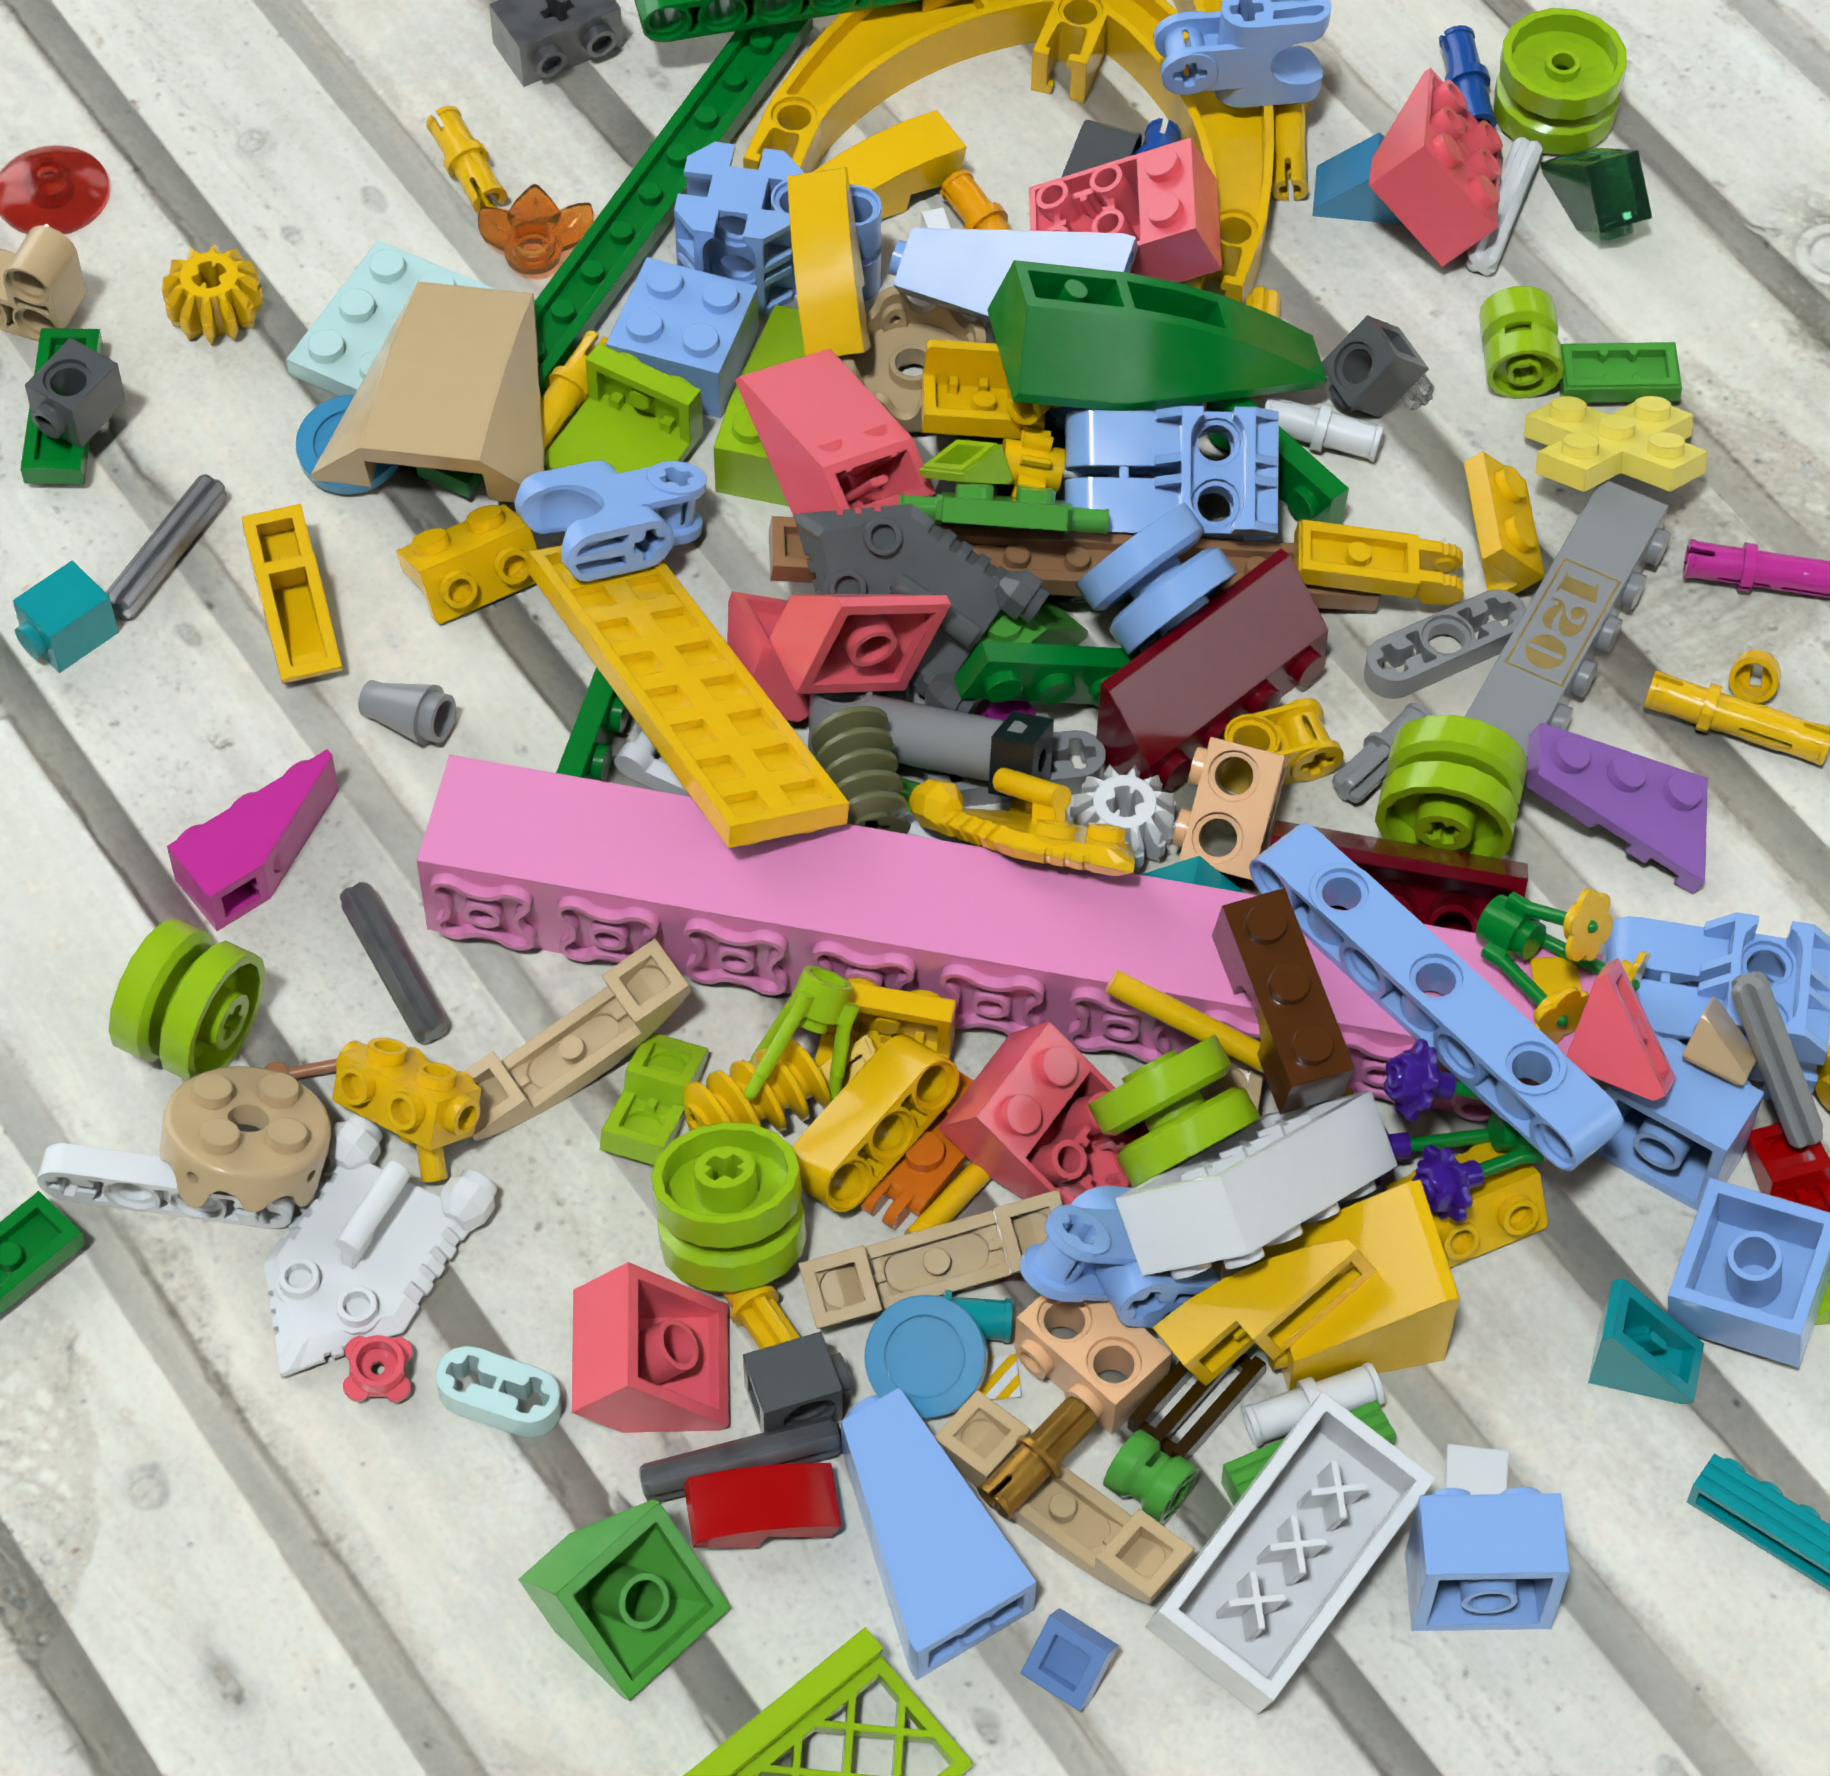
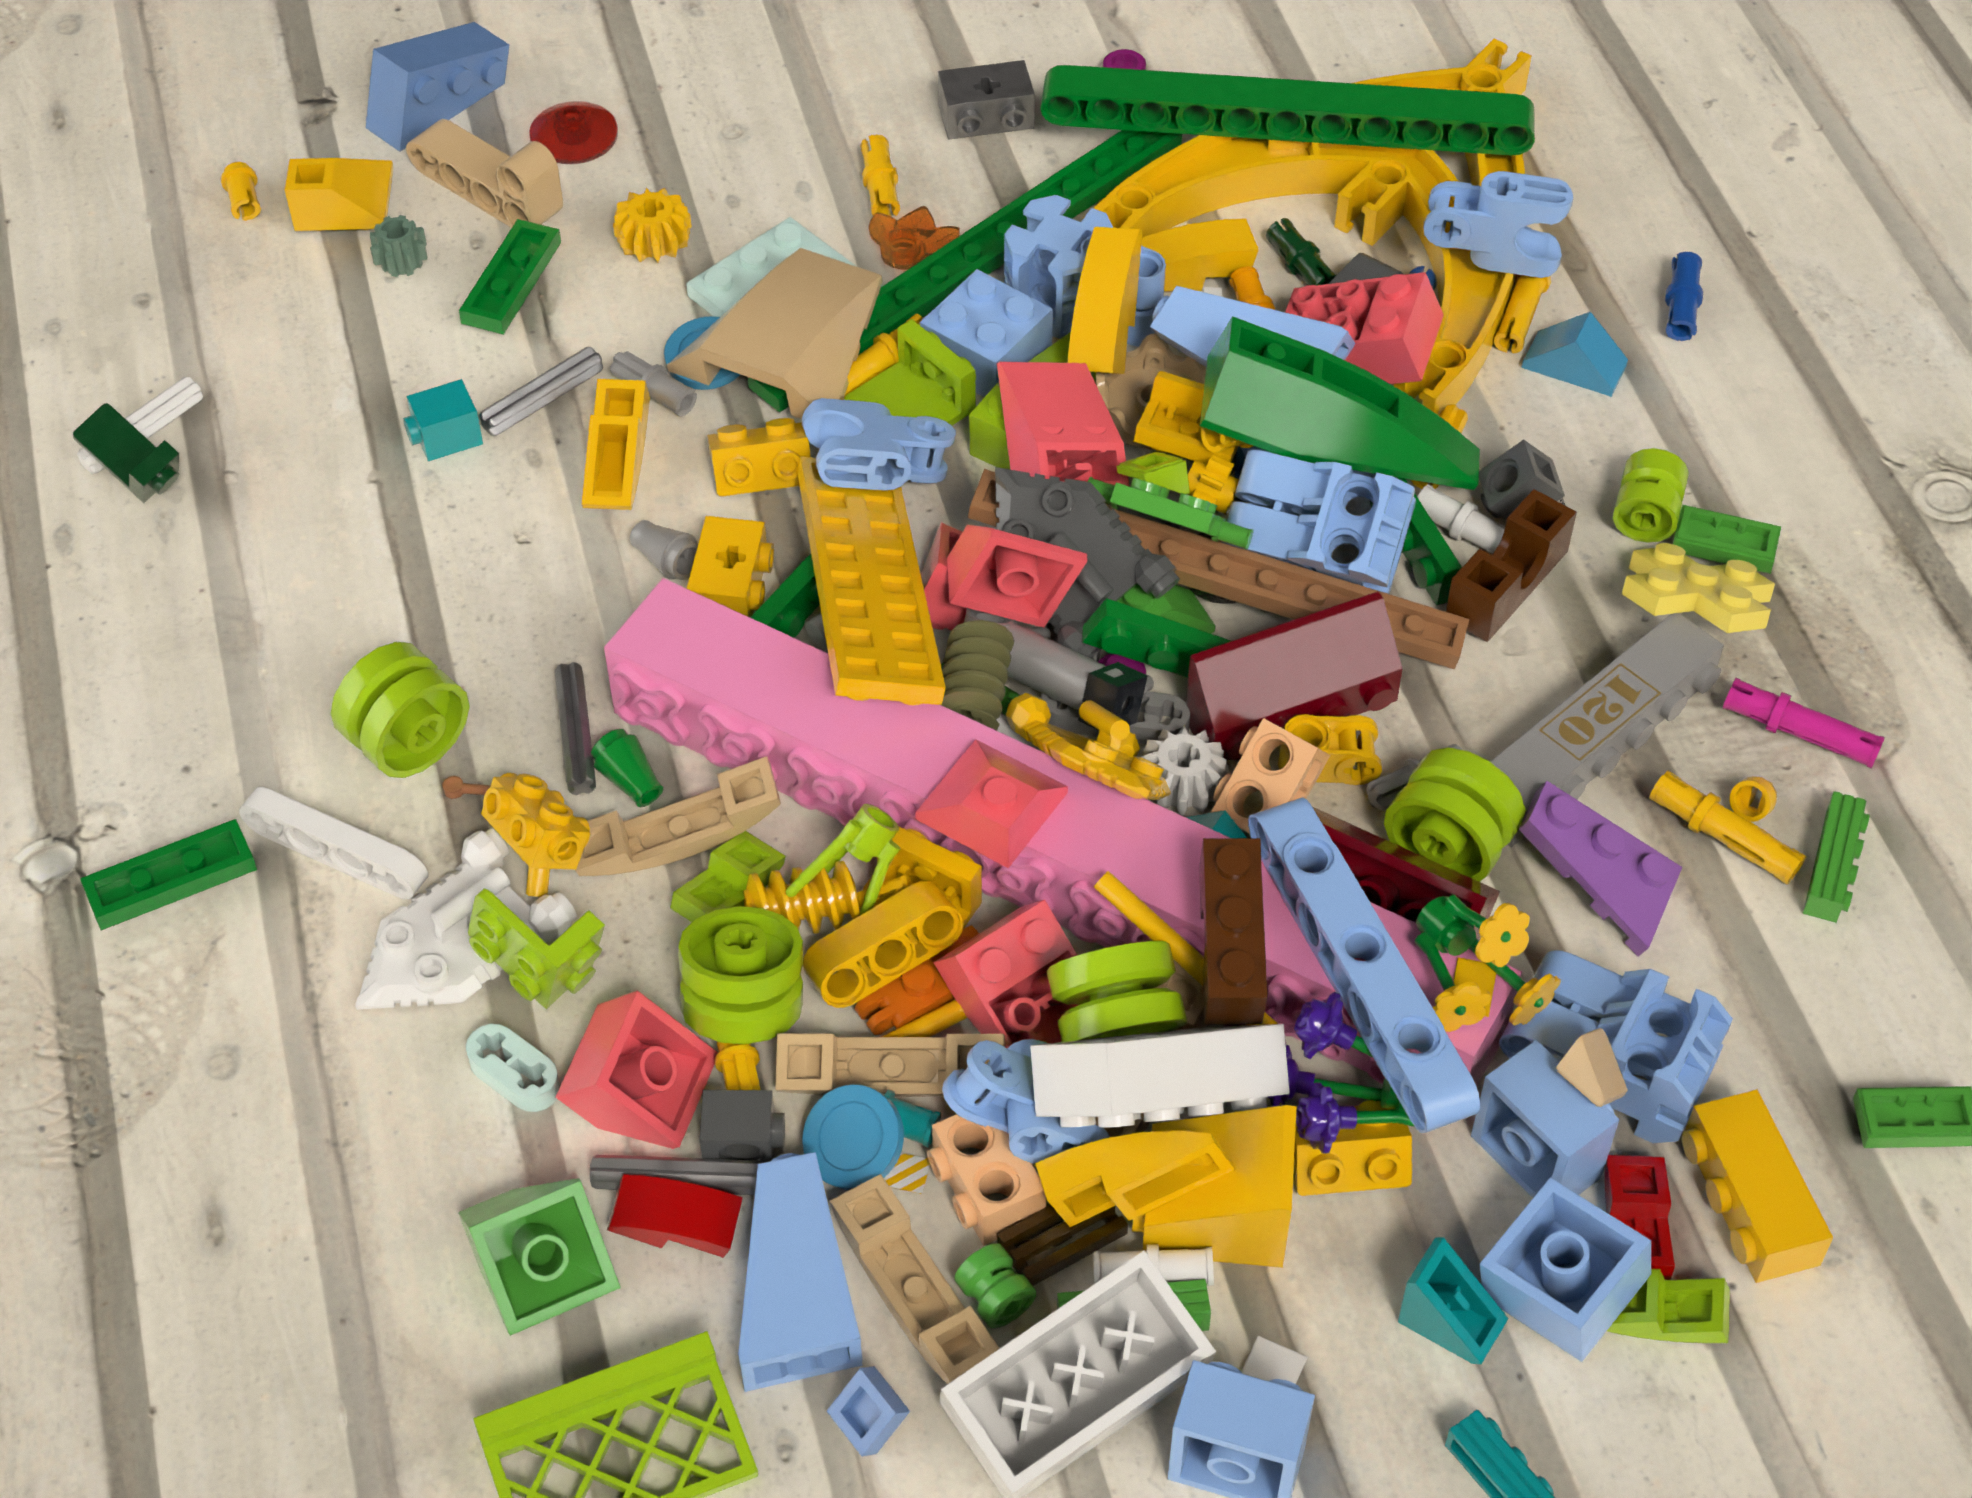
camera: 20 degrees right, 5 degrees down
(75, 393) = (515, 265): dark grey brick -> none
(248, 849) = (506, 615): dark pink slope -> none
(255, 1167) = (395, 842): tan plate -> none
(318, 504) = (660, 385): none -> light grey axle
(372, 1350) = (424, 1008): coral plate -> none
(471, 1257) = (533, 966): none -> lime bracket
(478, 992) = (625, 765): none -> green cone
(497, 707) = (732, 563): none -> yellow brick
(948, 925) = (991, 803): none -> coral slope
(1012, 140) = (1300, 255): none -> dark green pin
(1038, 1456) = (907, 1240): pearl gold axle -> none
(1160, 584) = (1266, 584): light blue wheel -> none
(1378, 562) = (1464, 628): yellow hinge -> none
(1405, 456) = (1496, 584): none -> reddish brown arch
(1433, 666) = (1487, 723): light grey beam -> none
(1440, 170) = (1631, 350): coral slope -> none
(1503, 524) = (1579, 626): yellow bracket -> none
(1514, 185) = (1679, 394): white axle -> none
(1560, 80) = (1757, 310): lime wheel -> none
(1600, 189) = (1762, 400): clear green slope -> none
(1617, 1039) = (1501, 1036): coral slope -> none
(1777, 1059) = (1642, 1096): light grey axle -> none

